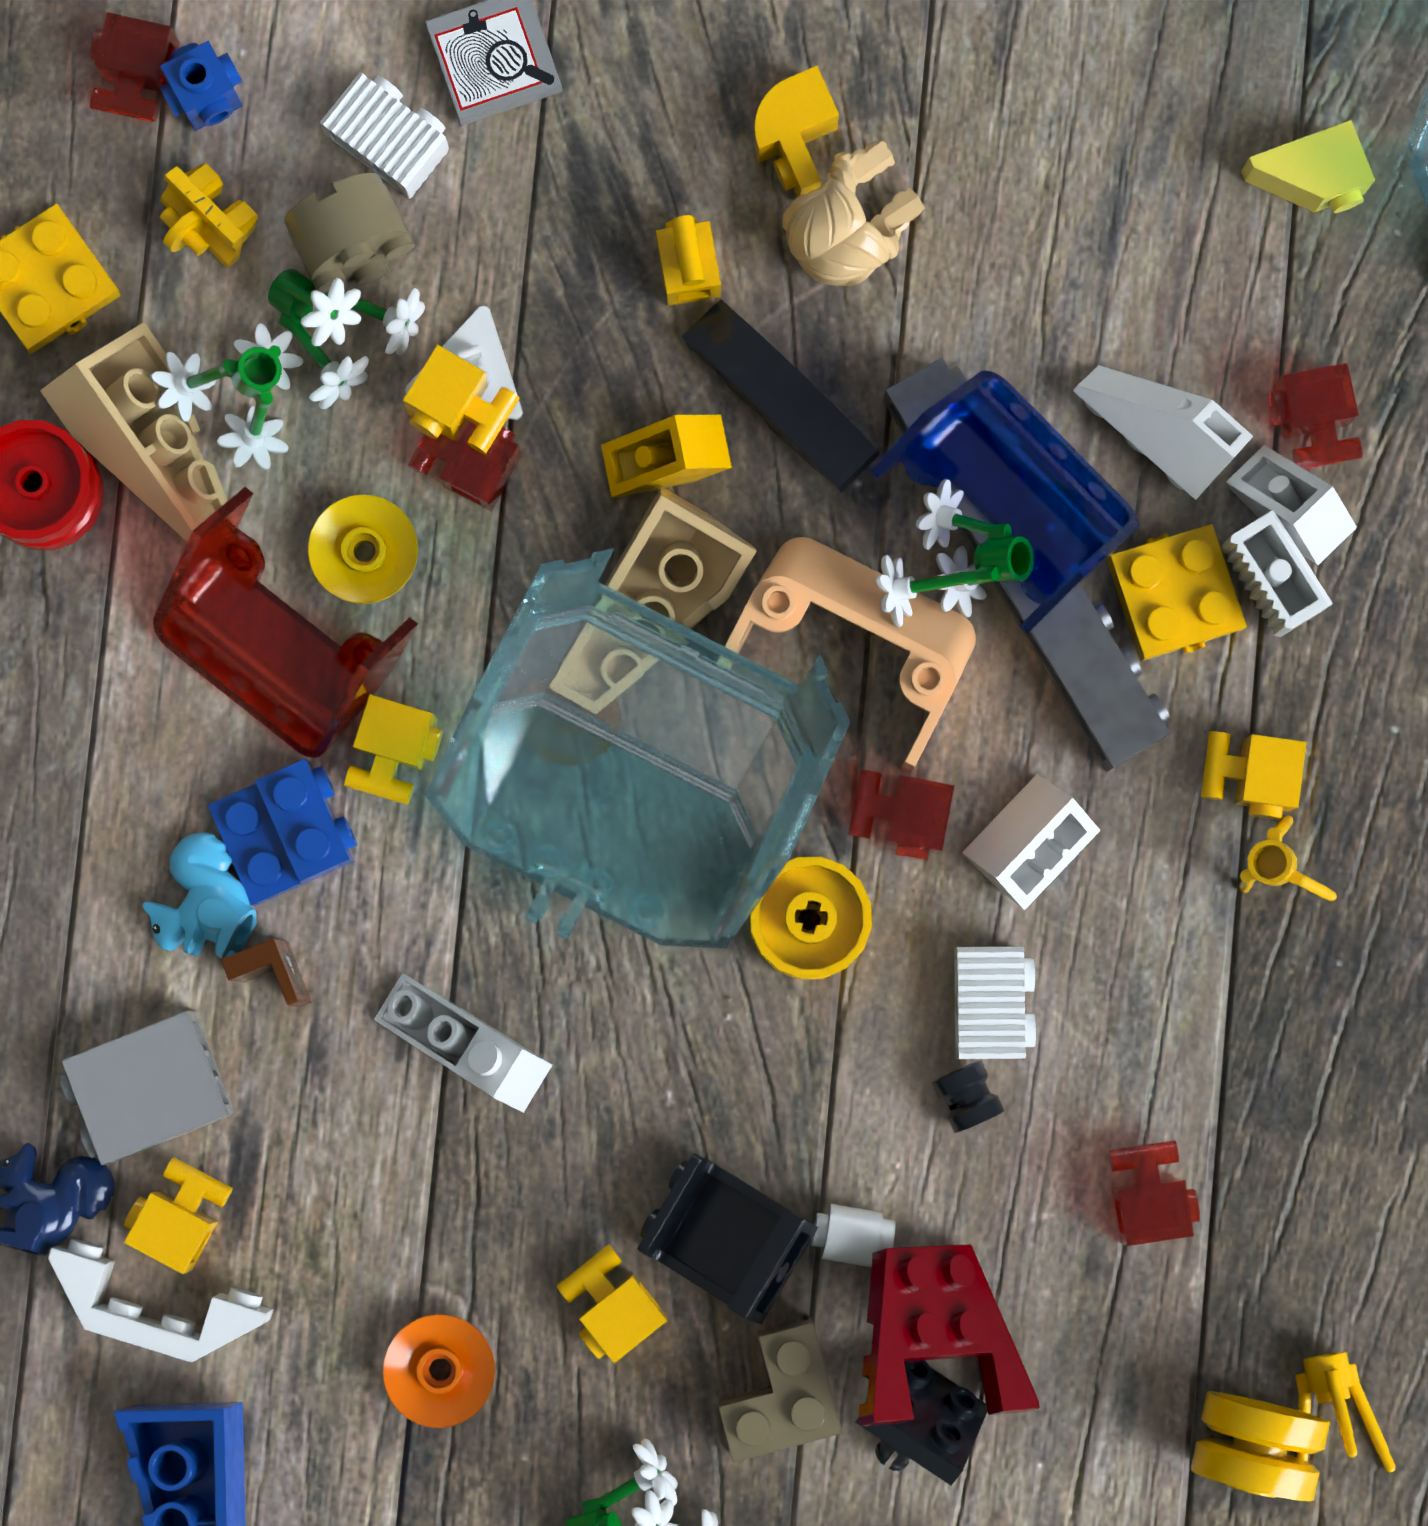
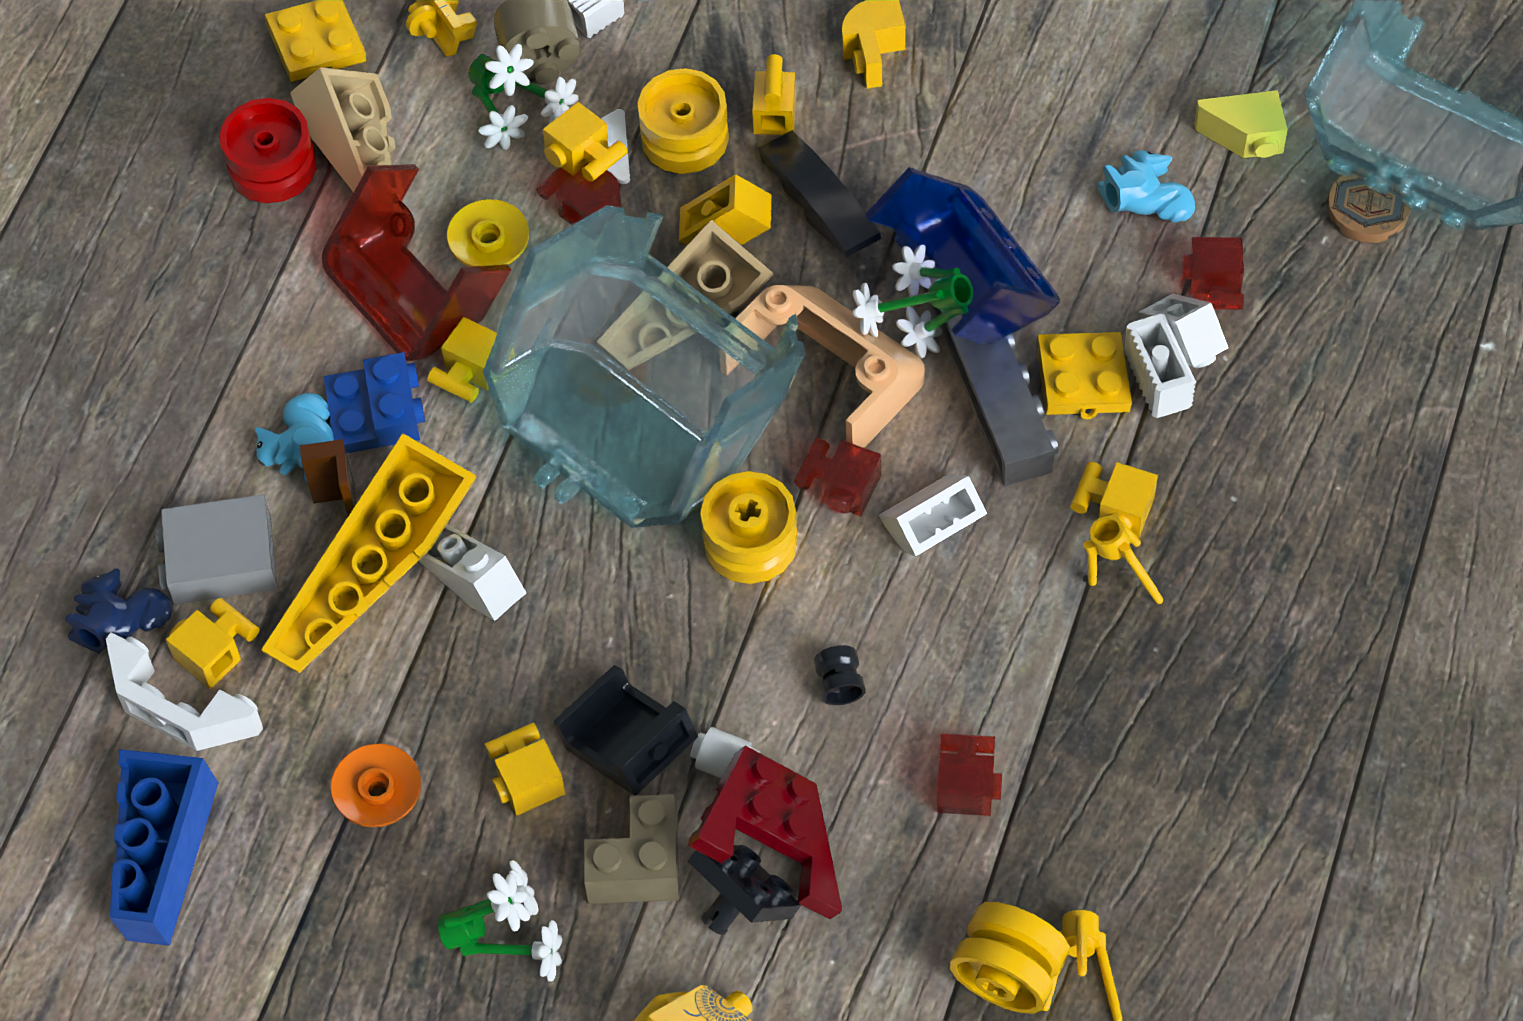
camera: 15 degrees right, 25 degrees down
(252, 375) = (446, 103): white plant -> none
(350, 1055) = (373, 549): none -> yellow wedge
(570, 292) = (683, 121): none -> yellow wheel
(830, 228) = (885, 100): tan hair -> none
(991, 1002) = (874, 613): white brick -> none
(1173, 428) = (1112, 268): white slope -> none
(1195, 303) = (1140, 192): none -> medium azure animal

